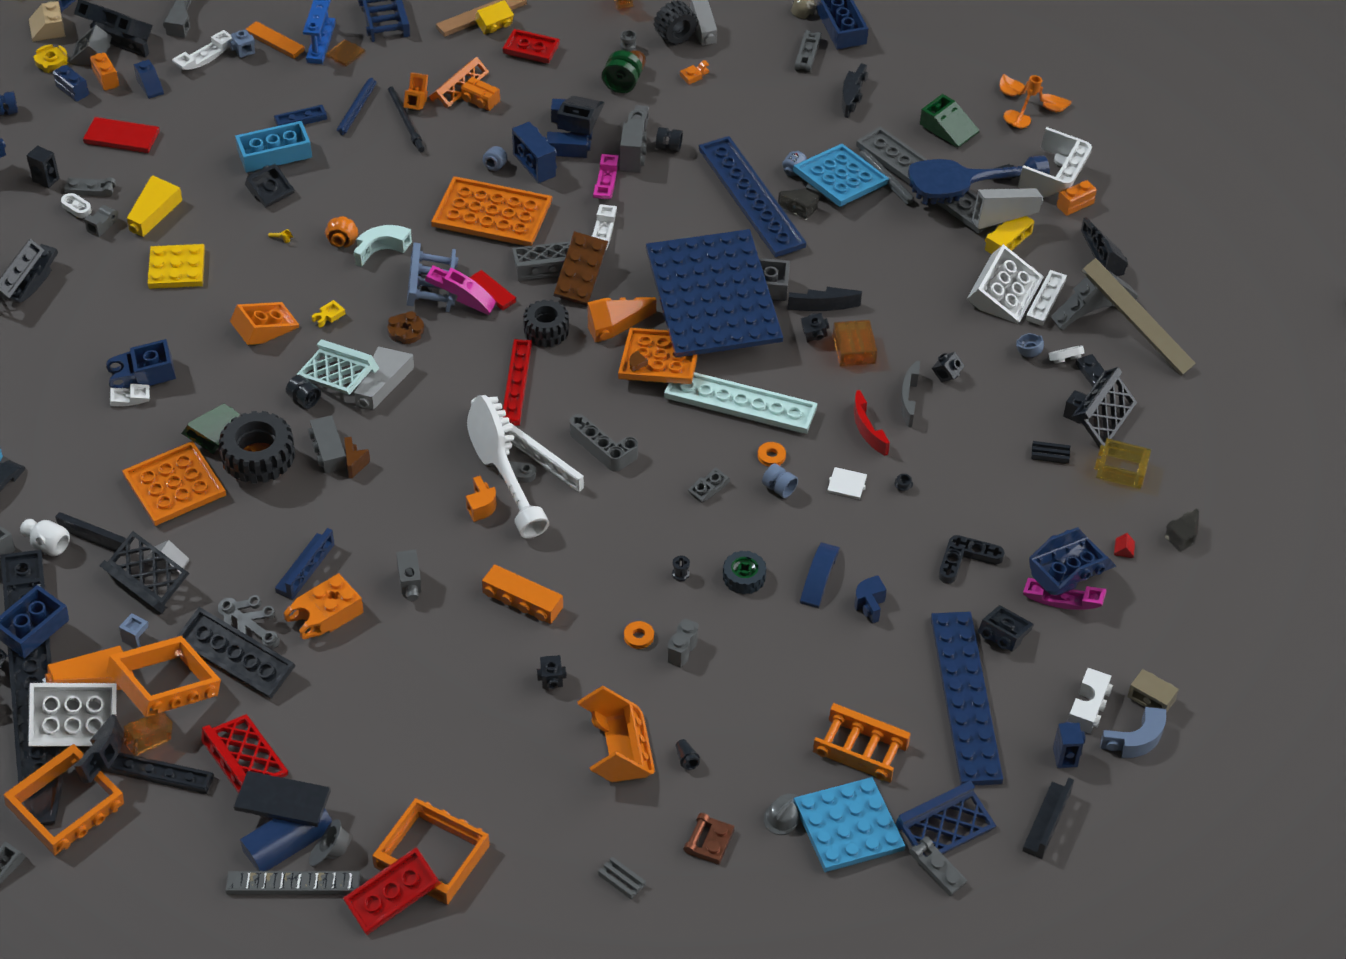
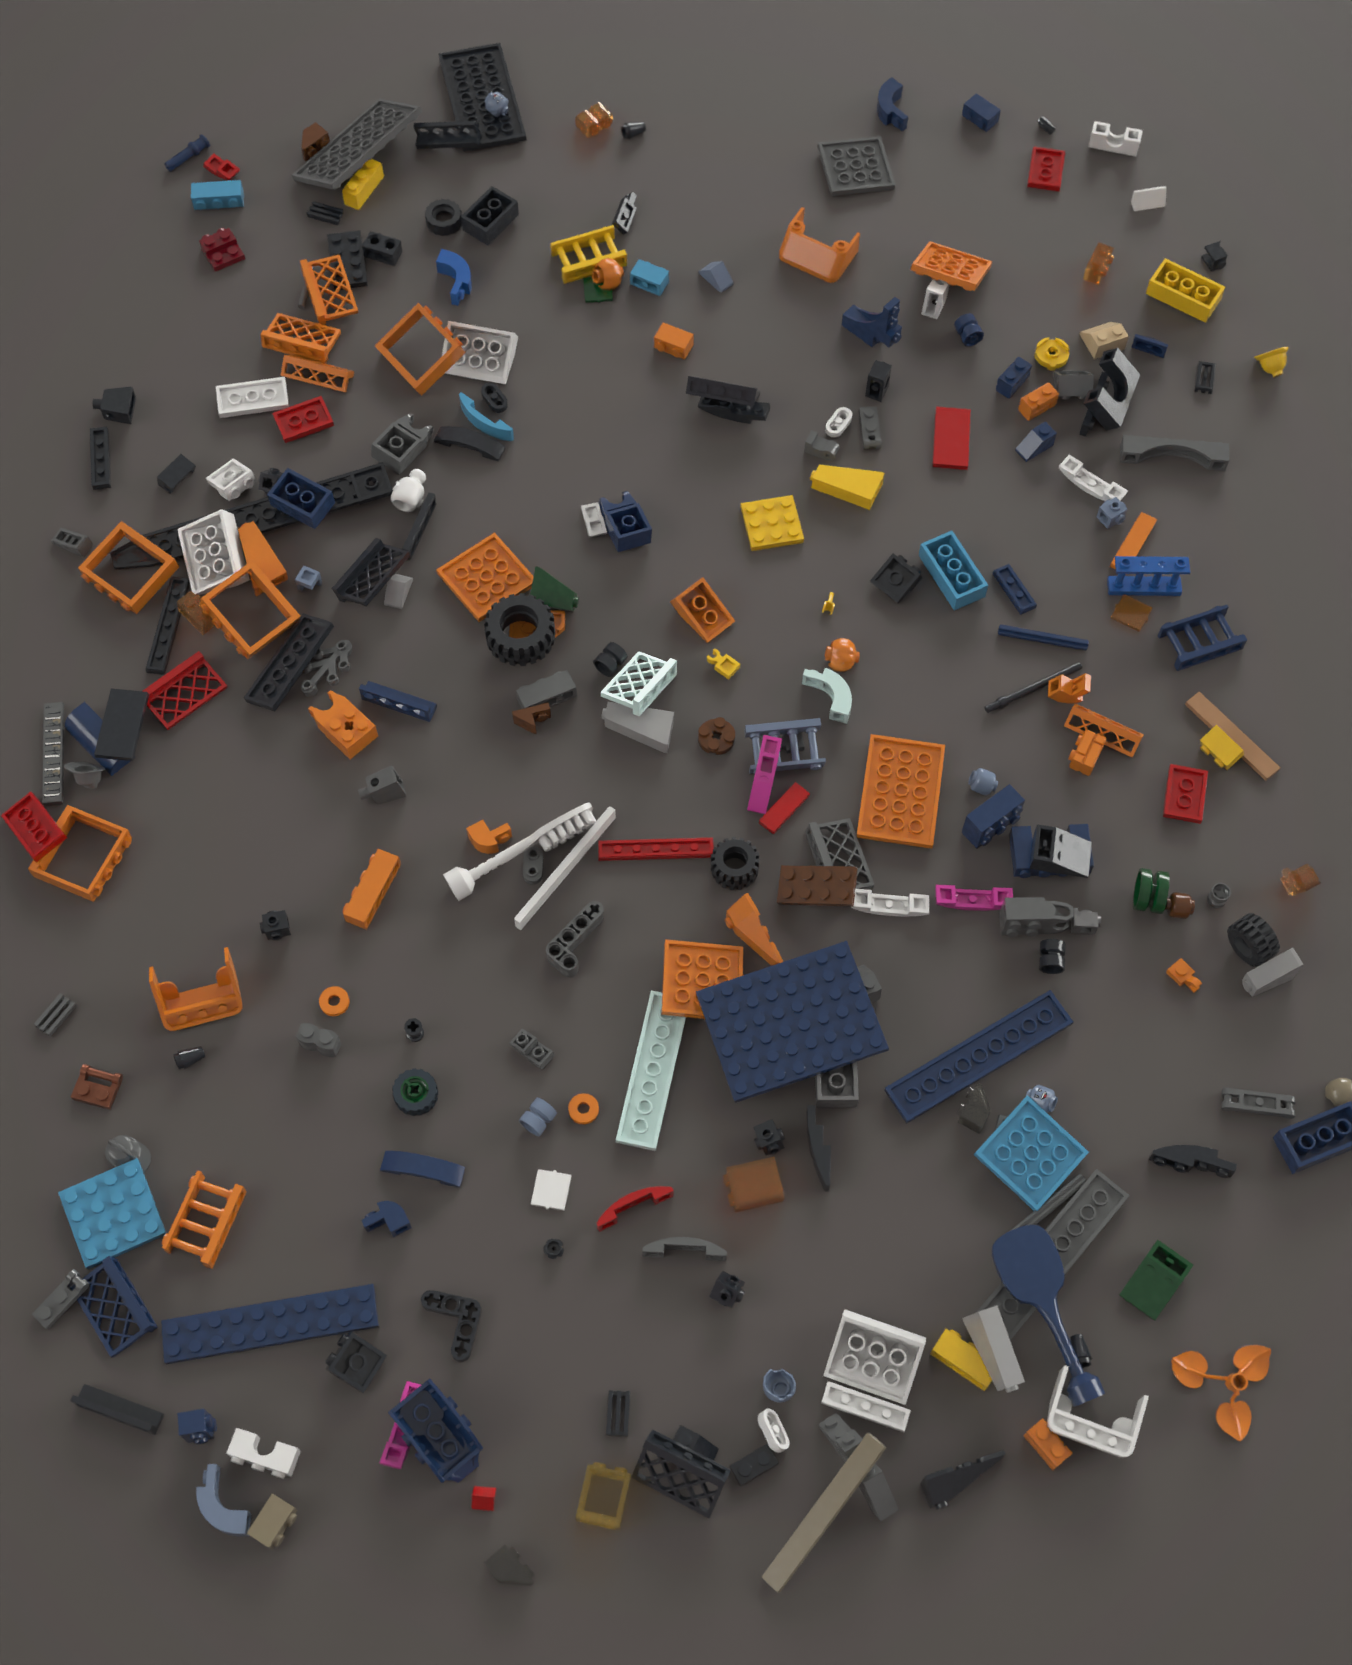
camera: 85 degrees right, 15 degrees up
(103, 752) = (168, 582): black slope -> none
(637, 361) = (681, 955): reddish brown tile -> none

